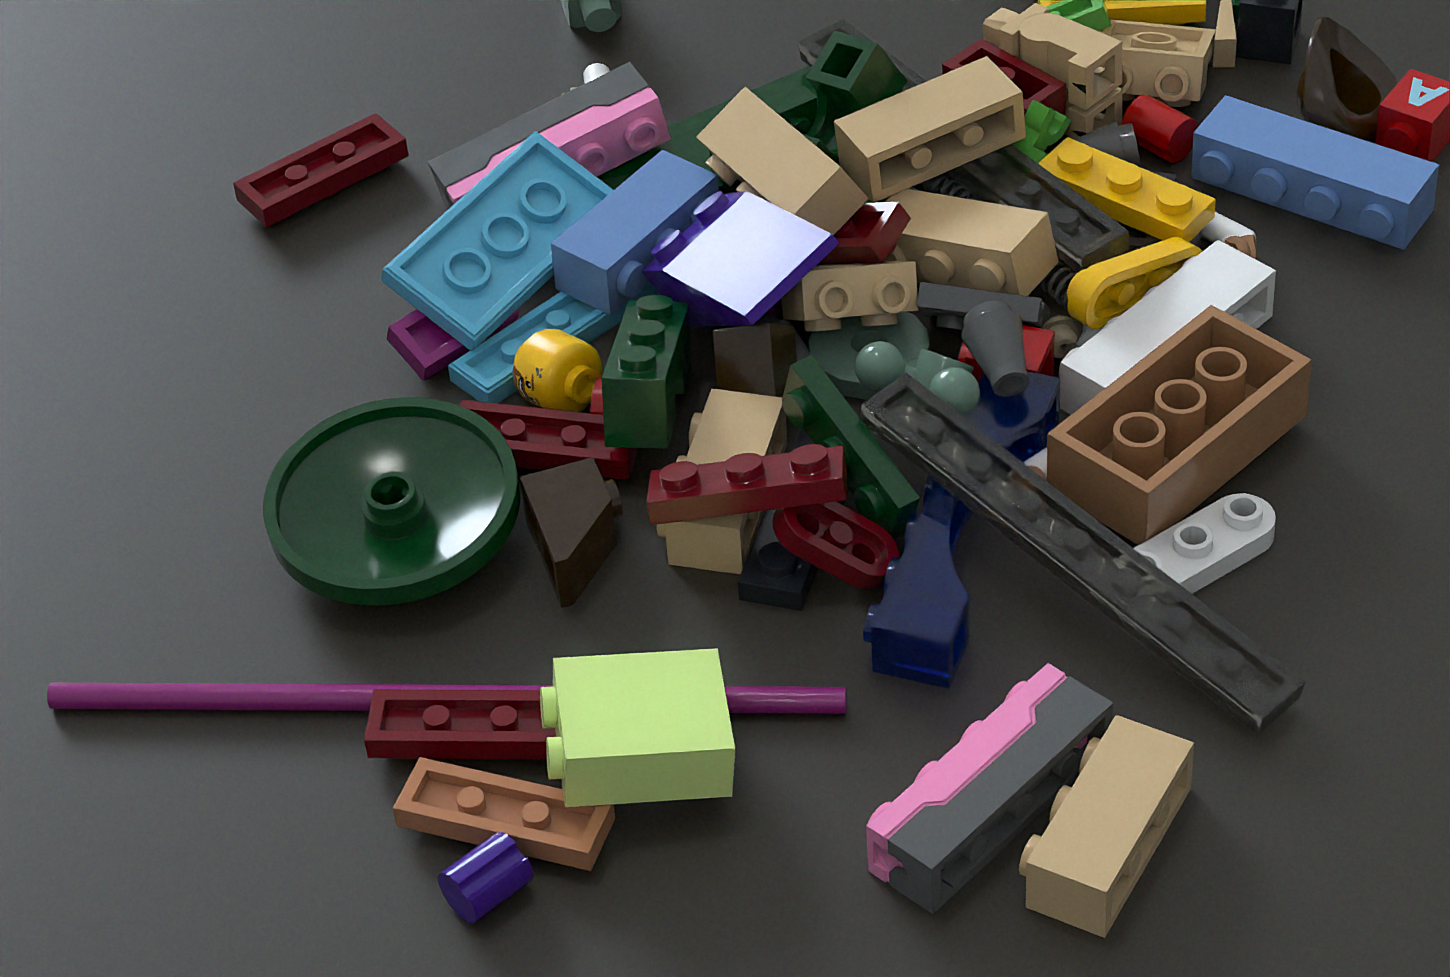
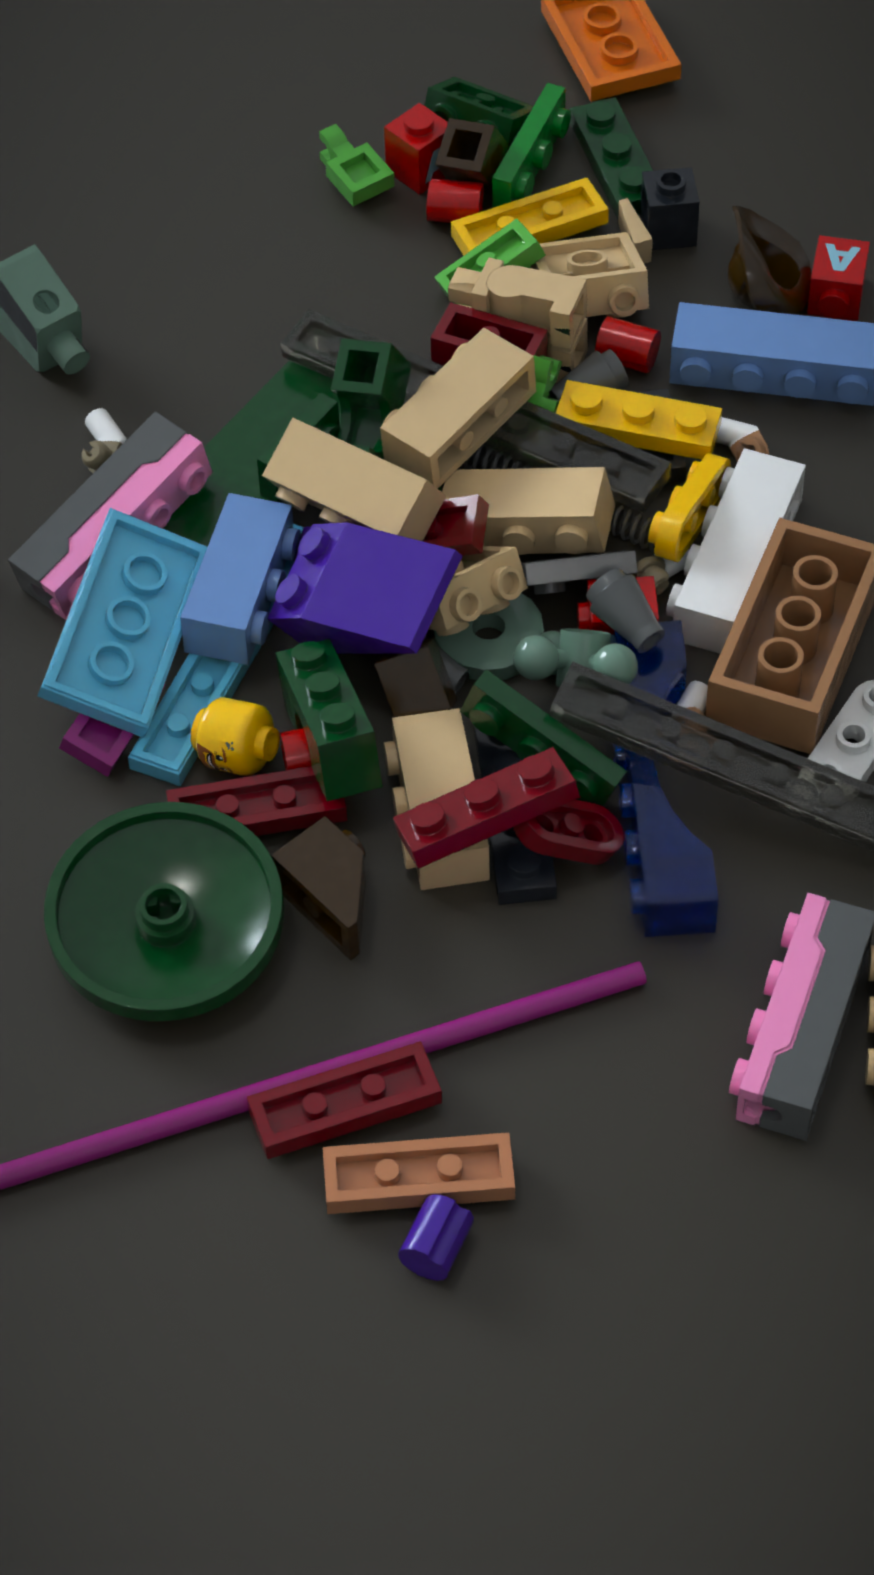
camera: 25 degrees left, 10 degrees up
(639, 728) = (507, 1061): yellowish green brick -> none

